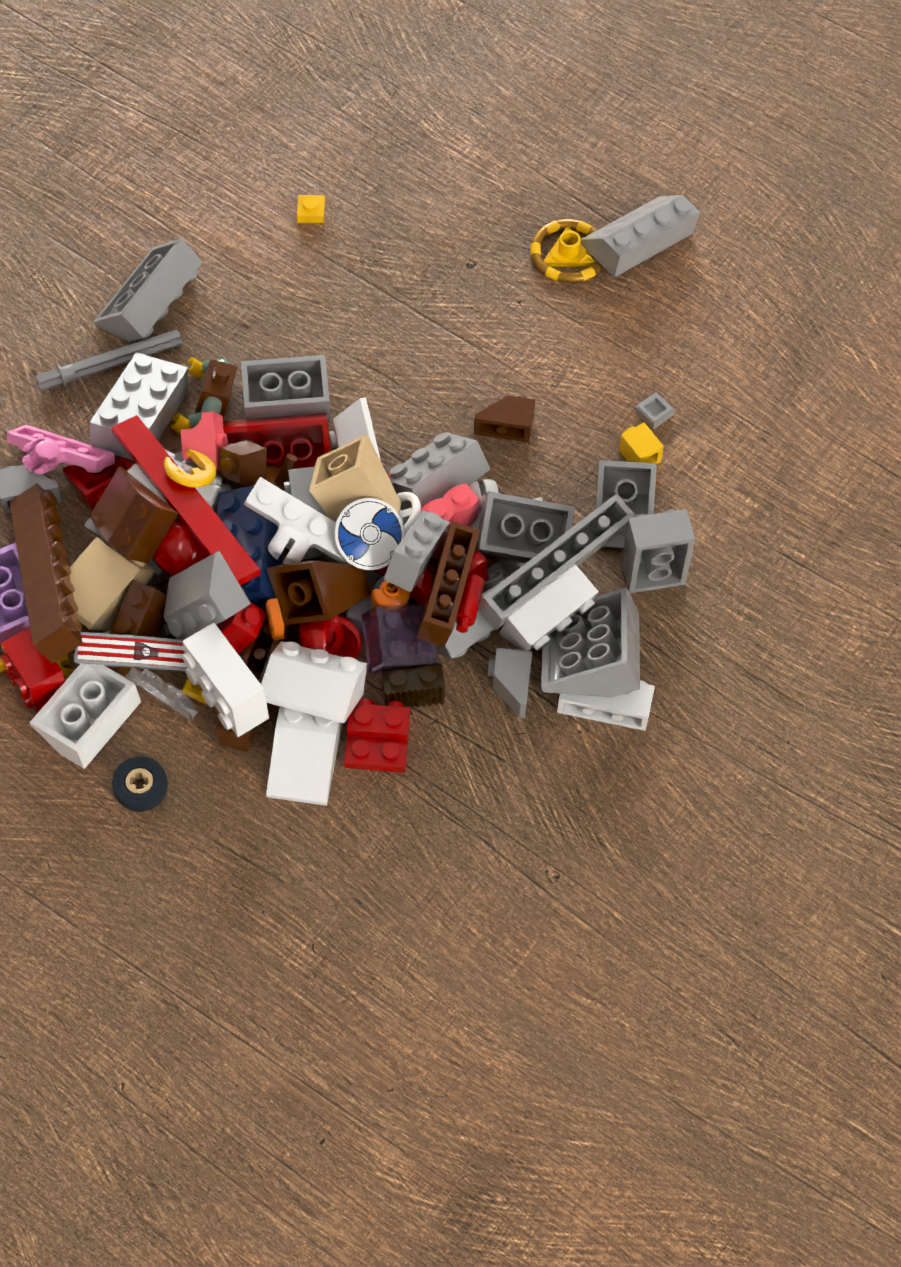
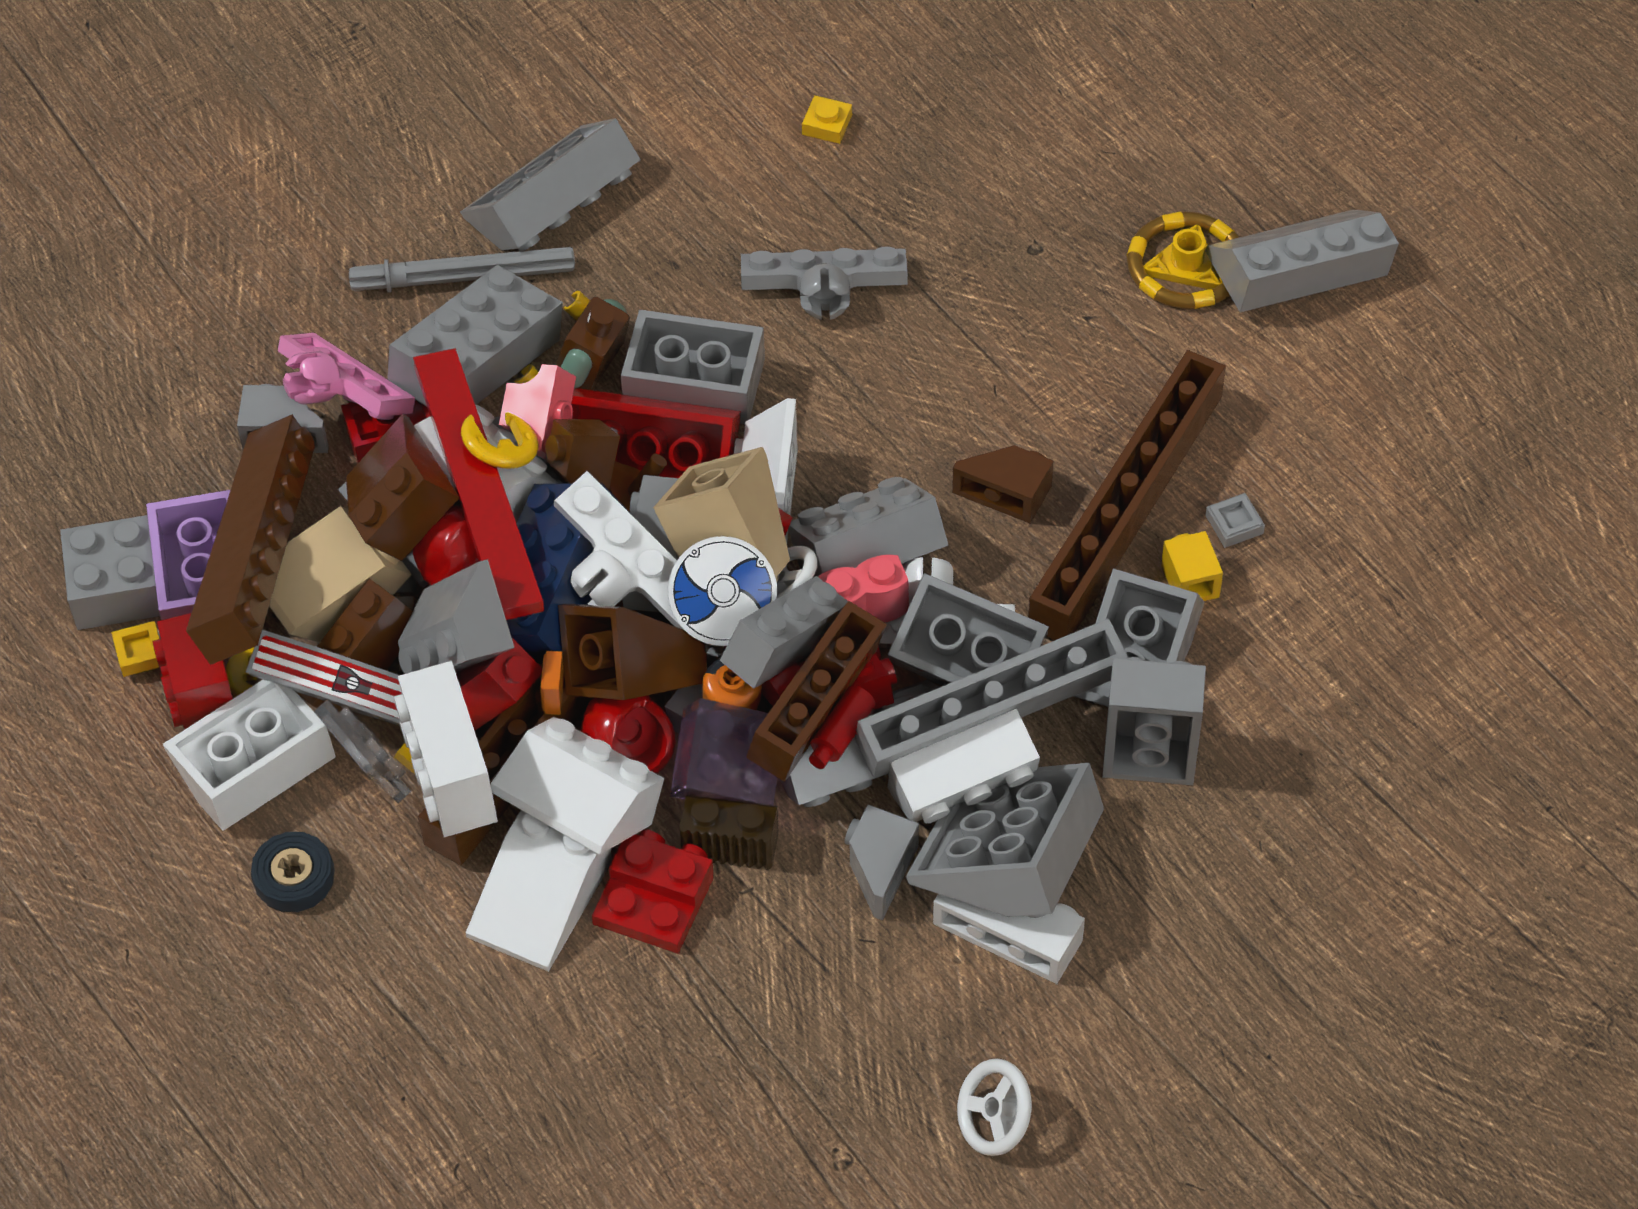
camera: 20 degrees right, 5 degrees down
(345, 312) = (824, 275): none -> light grey plate
(587, 410) = (1127, 495): none -> reddish brown brick
(653, 815) = (1005, 1108): none -> white piece

